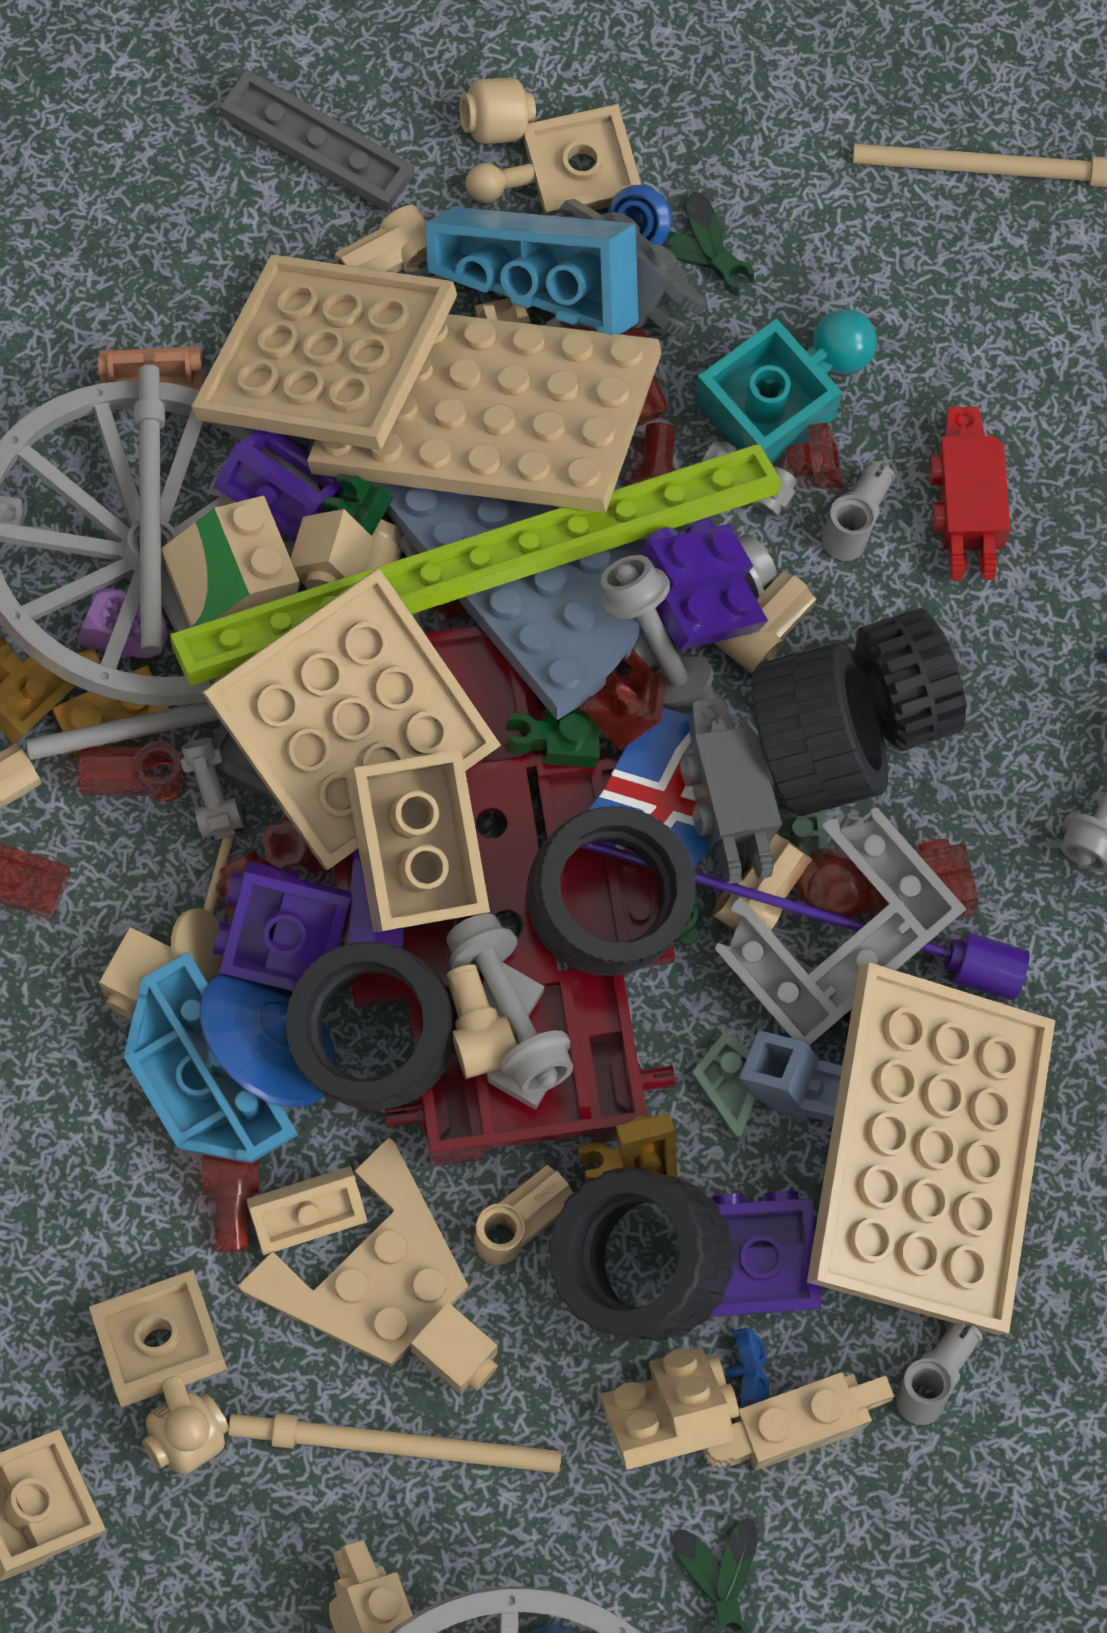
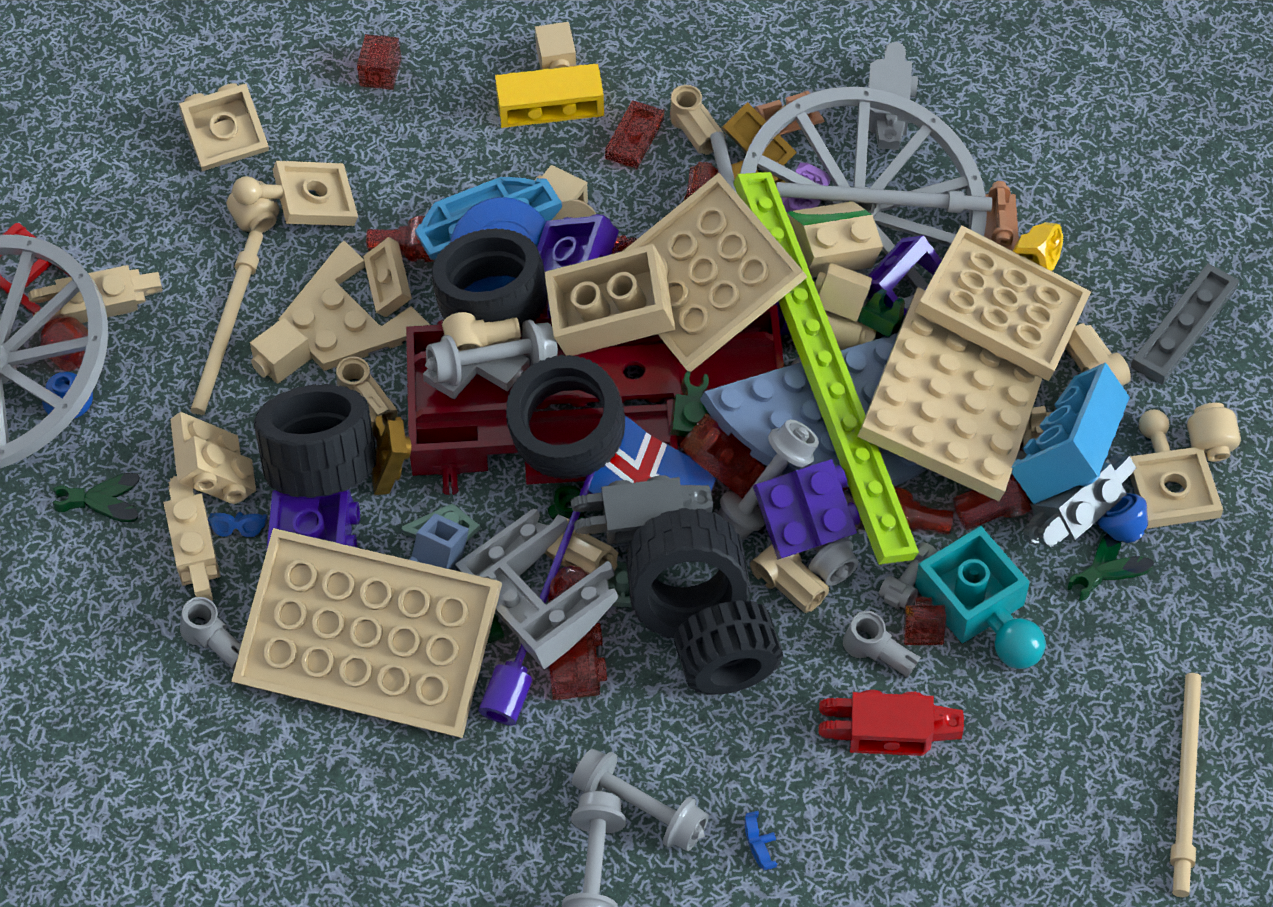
camera: 100 degrees right, 15 degrees down
(201, 316) = (1041, 245): none -> yellow rock

